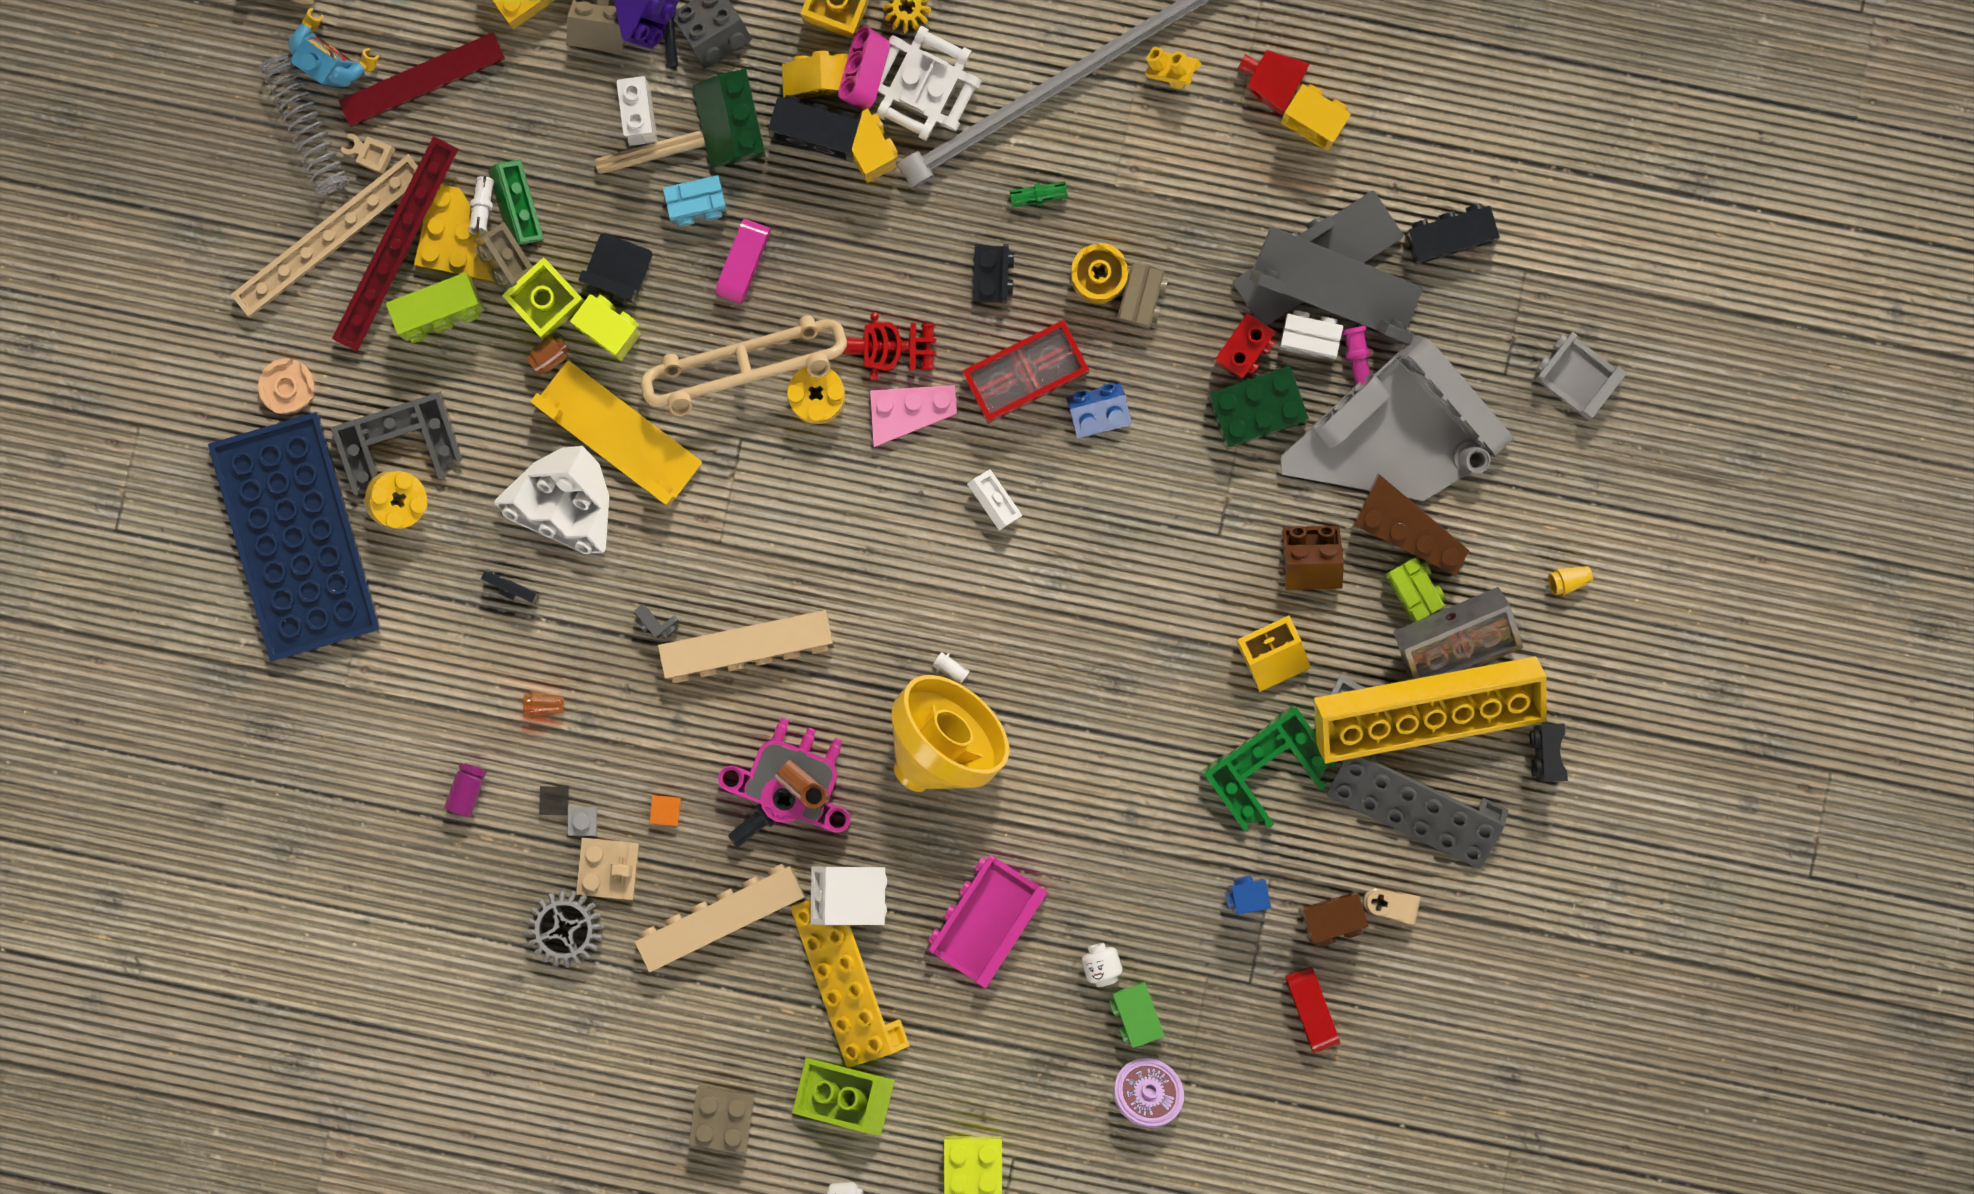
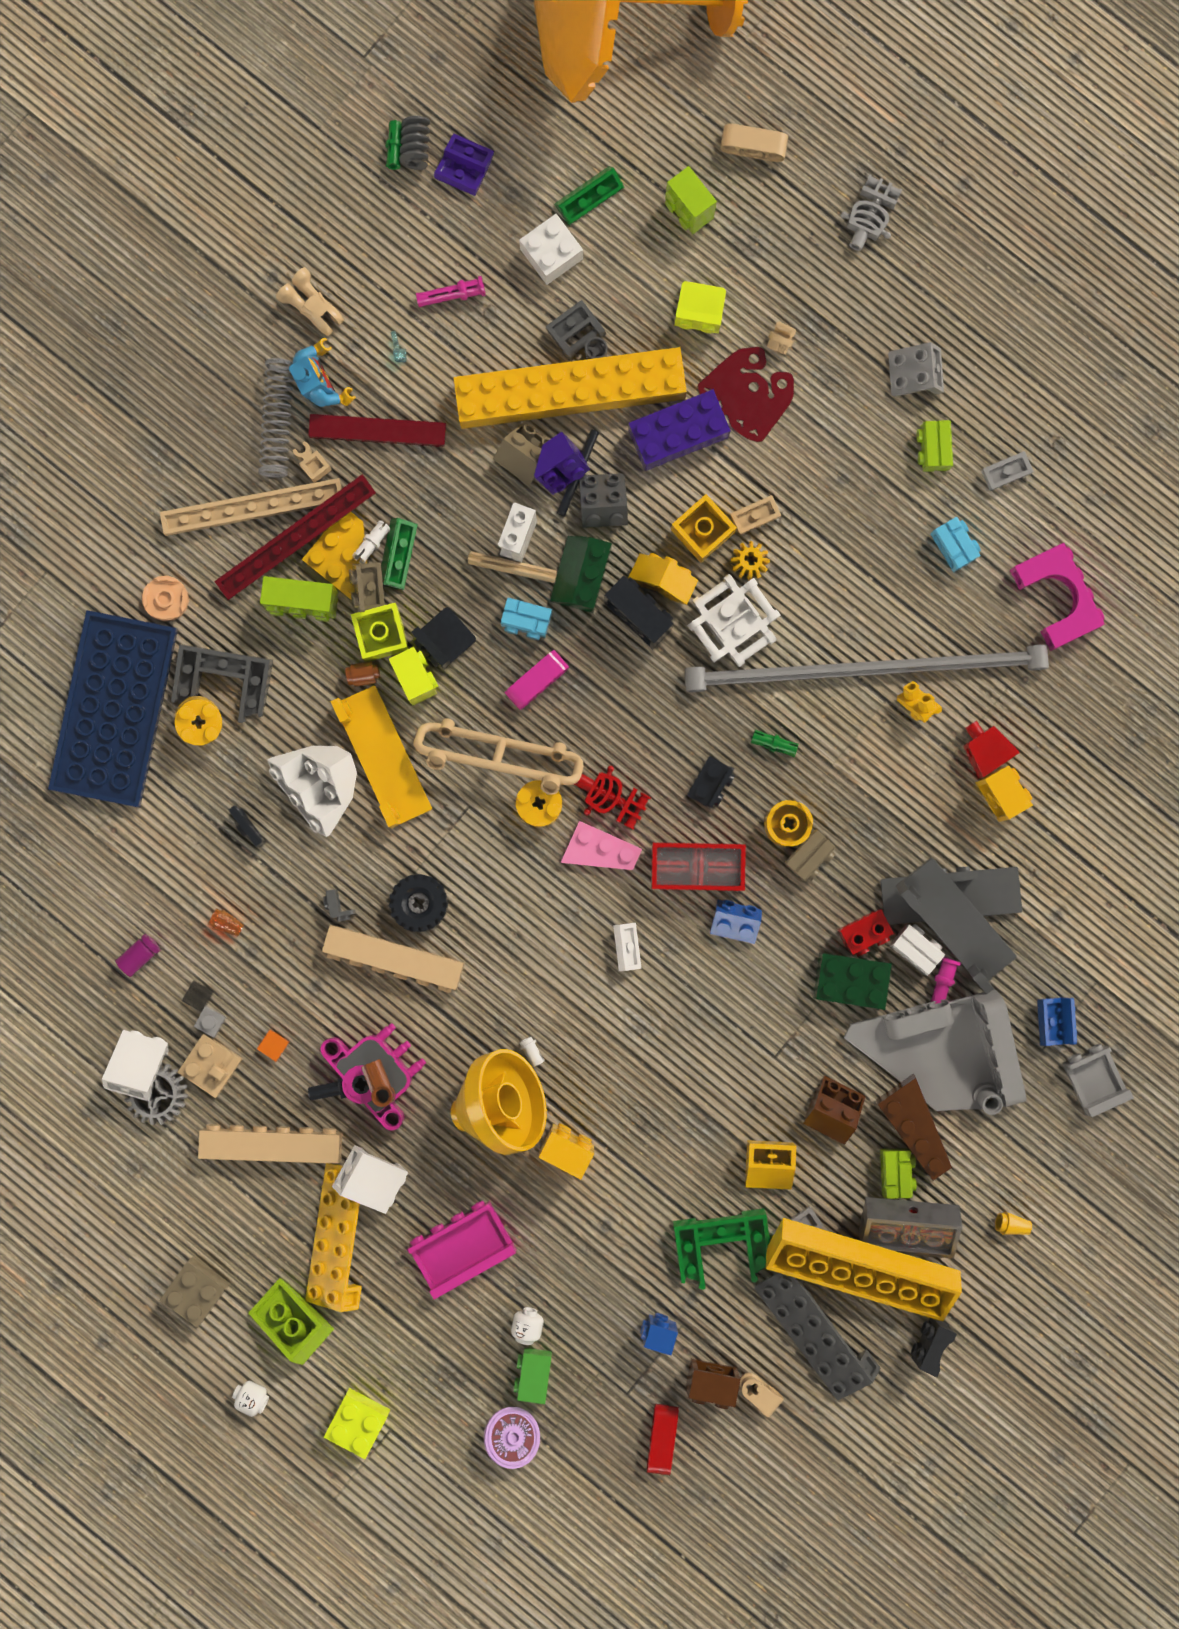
camera: 25 degrees right, 0 degrees up
(527, 907) = (134, 1064): none -> white panel
(722, 573) = (404, 897): none -> black bush
(864, 68) = (696, 587): dark pink beam -> none
(871, 150) = (671, 649): yellow slope -> none
(1044, 750) = (567, 1150): none -> yellow brick
(1452, 234) = (1058, 928): black brick -> none
(1502, 335) = (1057, 1021): none -> blue bracket

